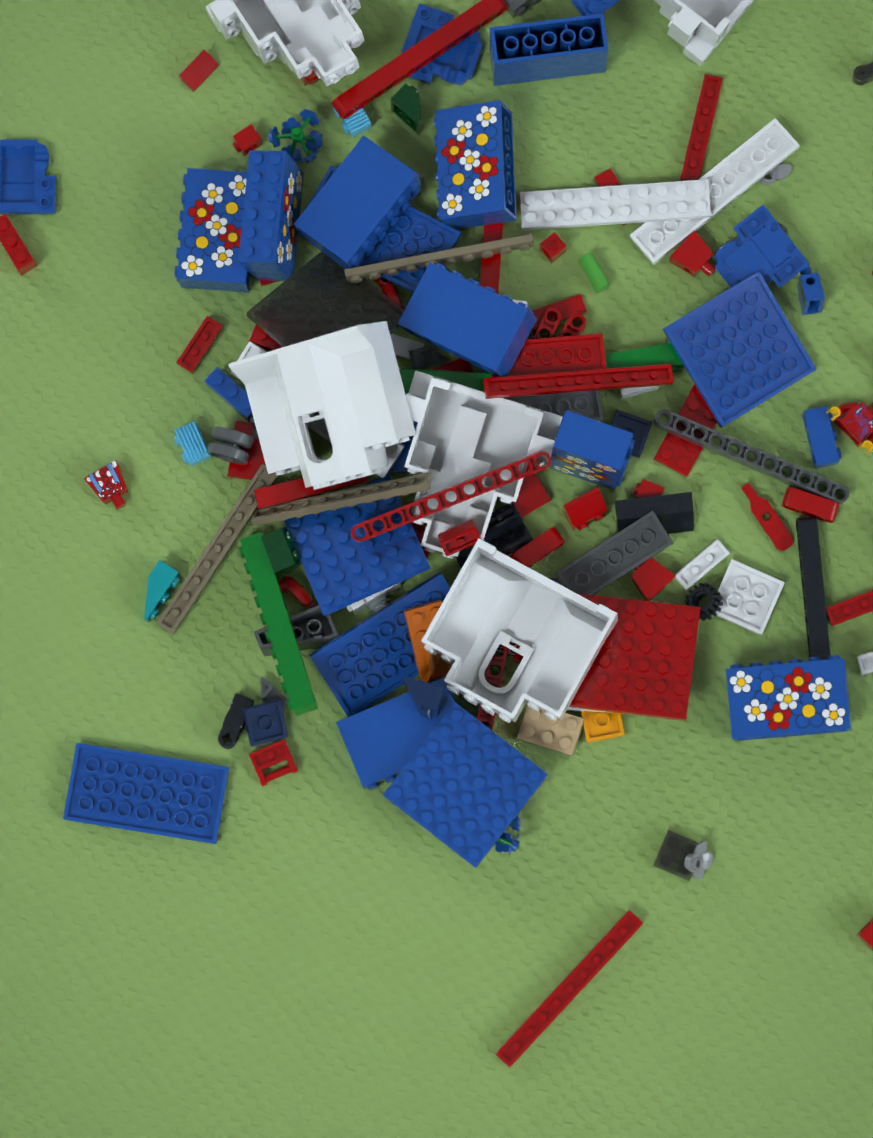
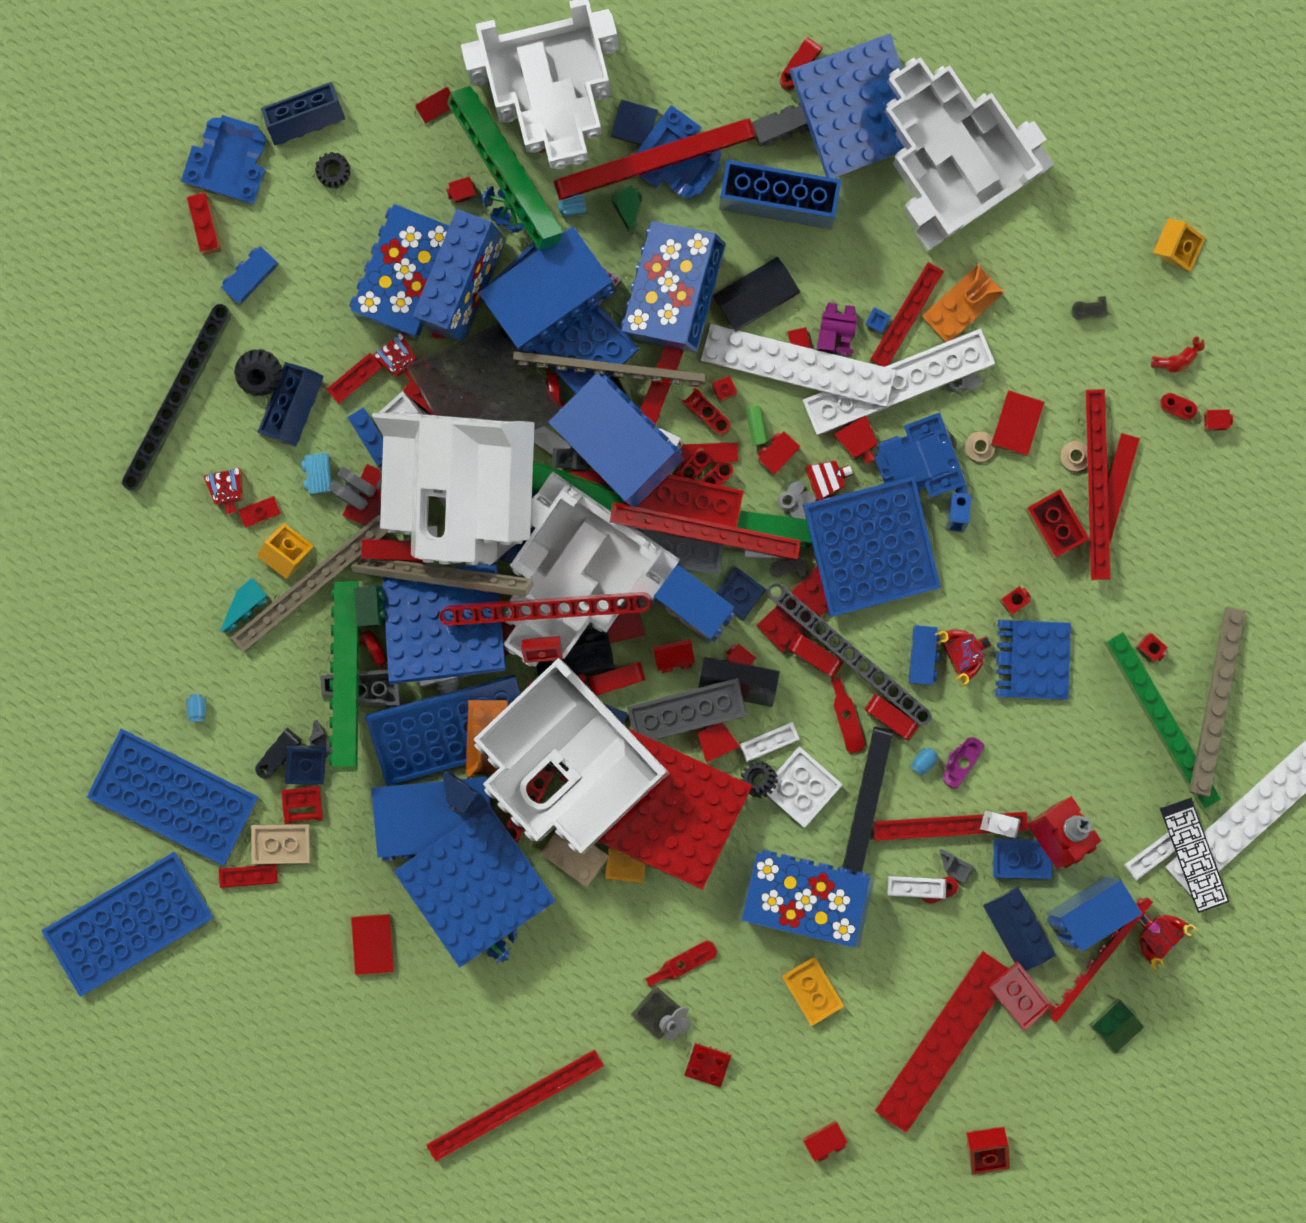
camera: 15 degrees right, 5 degrees up
(33, 405) = (176, 408): none -> black beam
(71, 279) = (249, 275): none -> blue brick
(76, 115) = (303, 113): none -> dark blue slope
(102, 377) = (252, 381): none -> black wheel
(120, 169) = (330, 158): none -> black tyre
(139, 930) = (127, 924): none -> blue plate
(143, 701) = (196, 708): none -> dark azure brick
(146, 386) = (291, 404): none -> dark blue slope
(147, 497) = (259, 511): none -> red plate
(183, 526) = (285, 550): none -> light orange slope
(233, 312) = (396, 356): none -> torso
(242, 847) = (248, 875): none -> red tile
(264, 806) = (280, 844): none -> tan plate
(282, 103) = (505, 167): none -> green brick
(382, 875) = (372, 944): none -> red tile
(388, 31) = (633, 122): none -> dark blue tile
(532, 268) = (699, 405): none -> red piece
(554, 151) = (756, 294): none -> black slope
(623, 291) = (778, 452): none -> red brick
(641, 155) = (837, 324): none -> magenta hips
(654, 329) = (798, 498): none -> light grey plate
(666, 394) = (788, 566): none -> clear smoke leg
(675, 141) = (877, 320): none -> blue plate
(675, 300) = (827, 478): none -> torso
(694, 793) = (692, 958): none -> red piece
(719, 468) = (815, 655): none -> red beam
(743, 891) = (707, 1065): none -> red hinge
(750, 103) = (962, 304): none -> orange plate
(807, 236) = (973, 453): none -> tan piece
(820, 788) = (812, 991): none -> light orange plate
(838, 195) = (1017, 423): none -> red tile
(855, 536) = (924, 761): none -> dark azure brick

